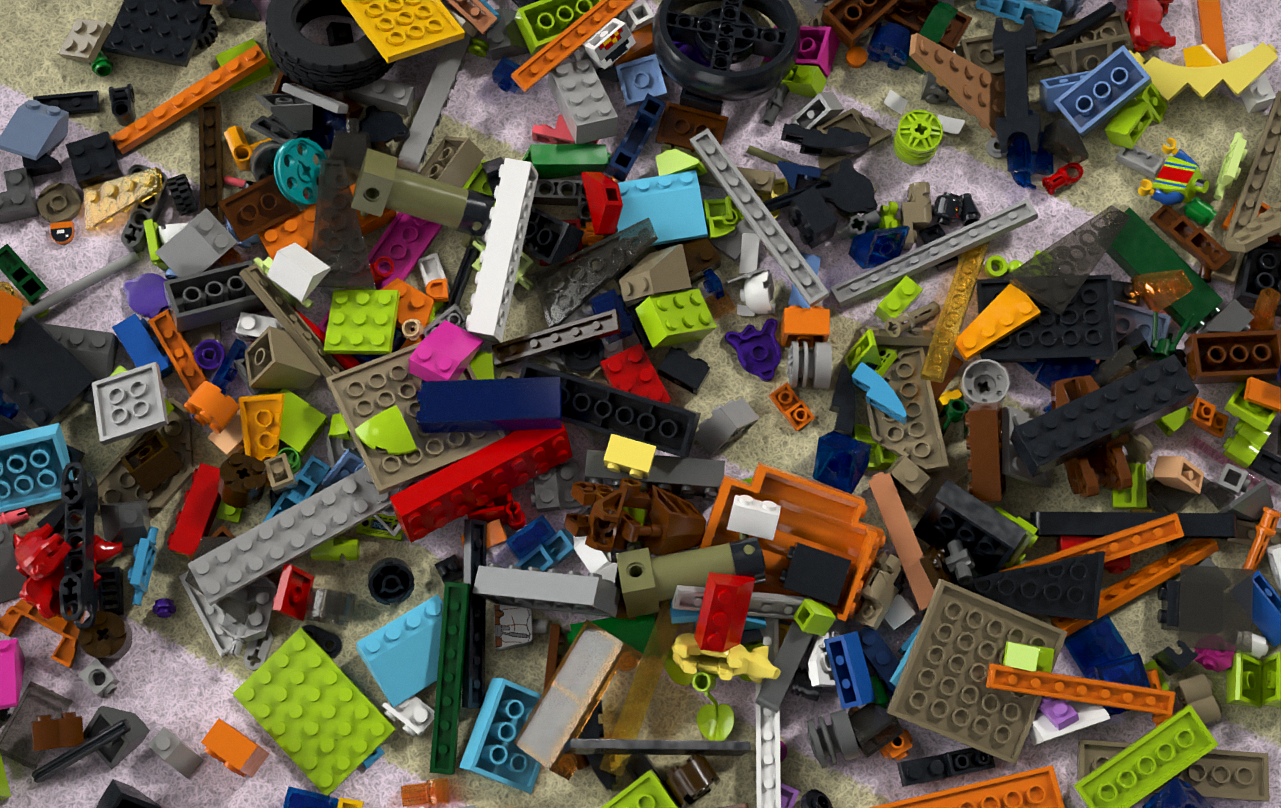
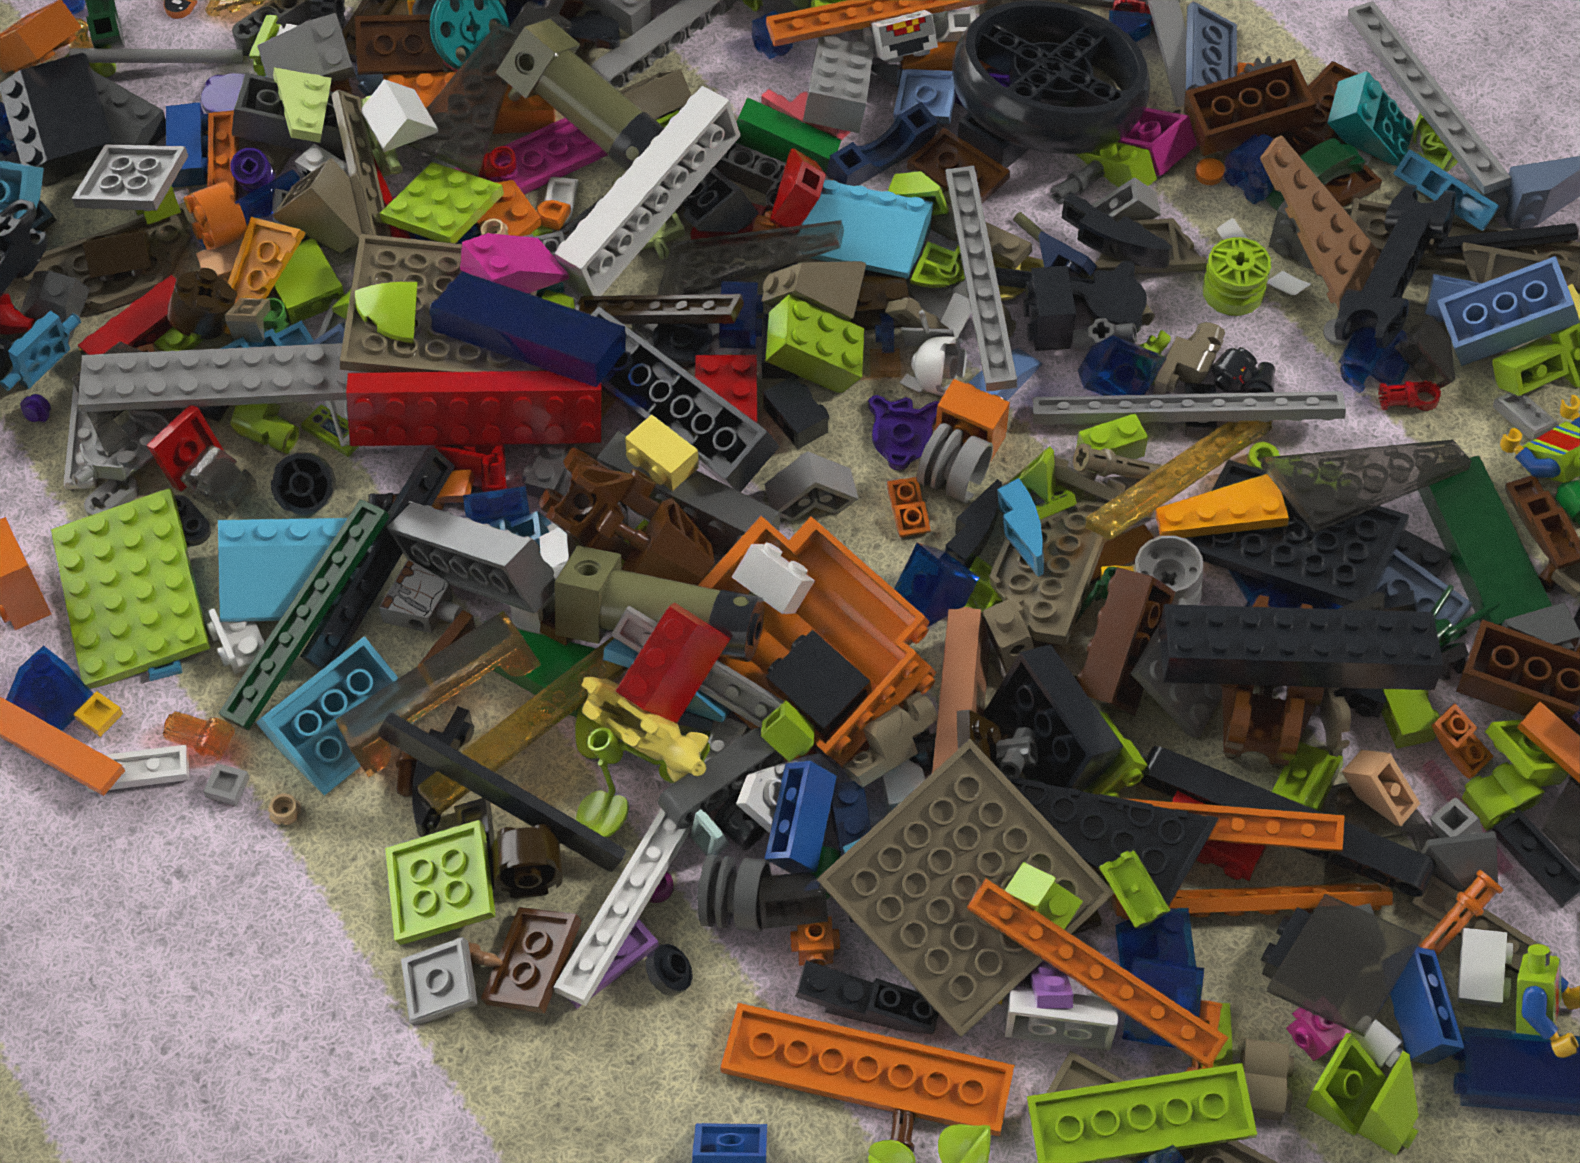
camera: 30 degrees right, 15 degrees down
(221, 287) = (304, 102): none -> yellowish green wing
(730, 266) = (907, 313): none -> dark tan plate
(795, 705) = (708, 835): none -> light aqua slope
(1075, 621) = (1135, 889): none -> lime hinge
(1161, 288) = (1466, 548): clear orange wing -> none
(1172, 662) = (1255, 1009): black hinge -> none

